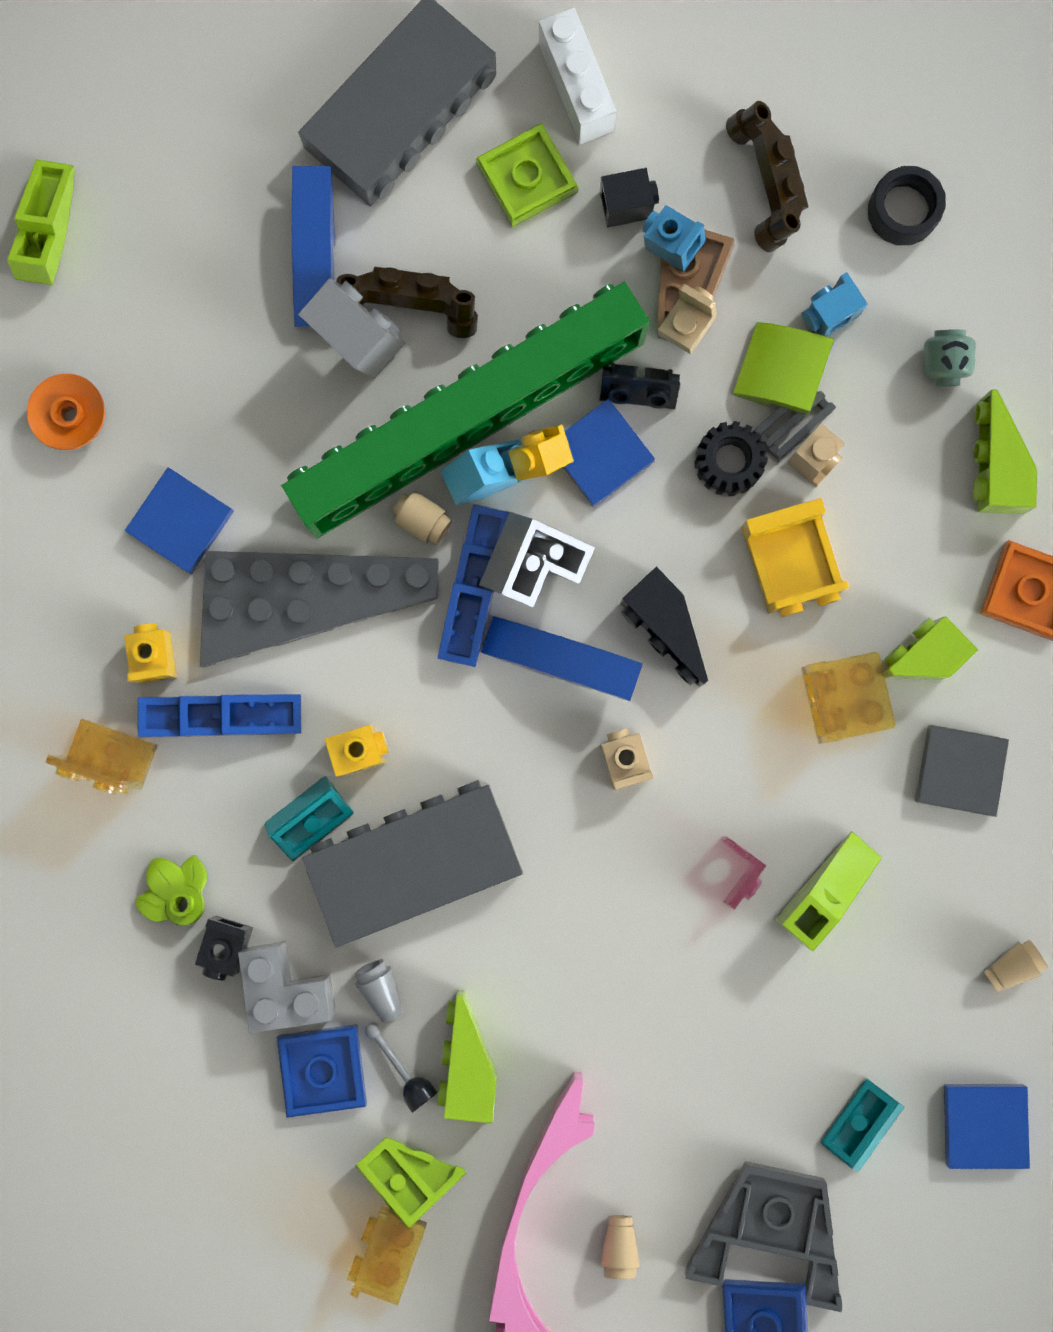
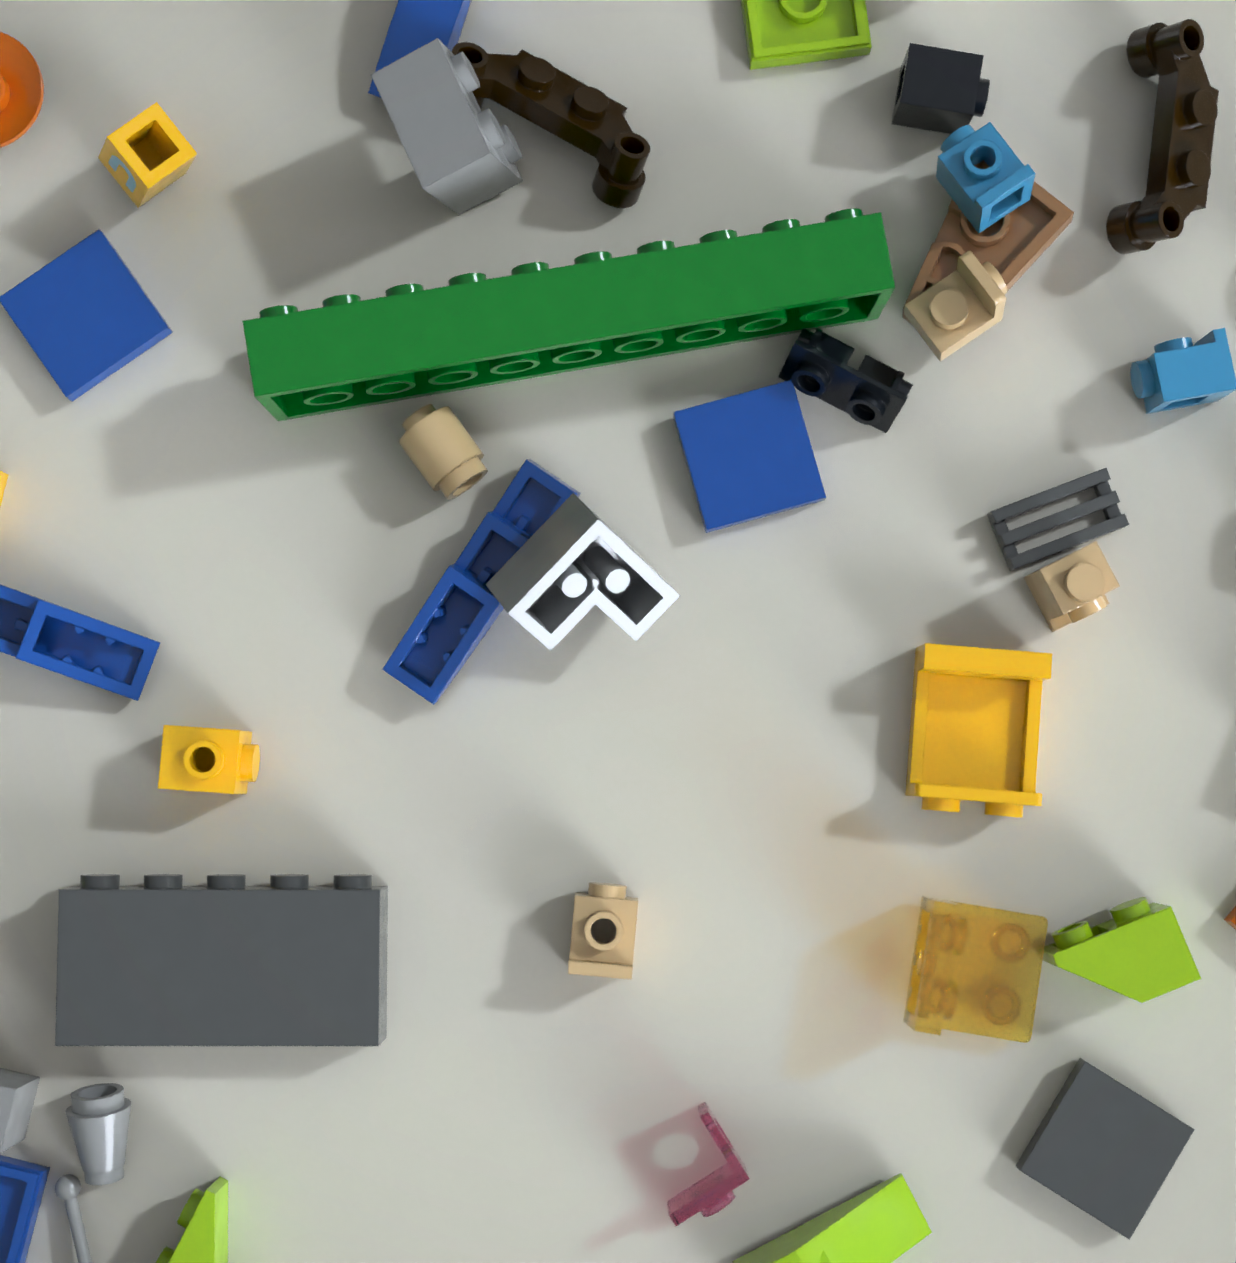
camera: 20 degrees right, 0 degrees up
(180, 412) = (147, 154): none -> yellow brick
(285, 597) = (196, 490): dark grey wing -> none
(308, 818) = (98, 832): teal slope -> none
(480, 472) = (567, 418): medium azure slope -> none
(541, 453) = (656, 423): yellow brick -> none
(562, 658) = (568, 743): blue slope -> none
(664, 614) = (748, 739): black slope -> none
(737, 436) = (970, 519): black tyre -> none
(783, 367) = (1073, 433): lime slope -> none

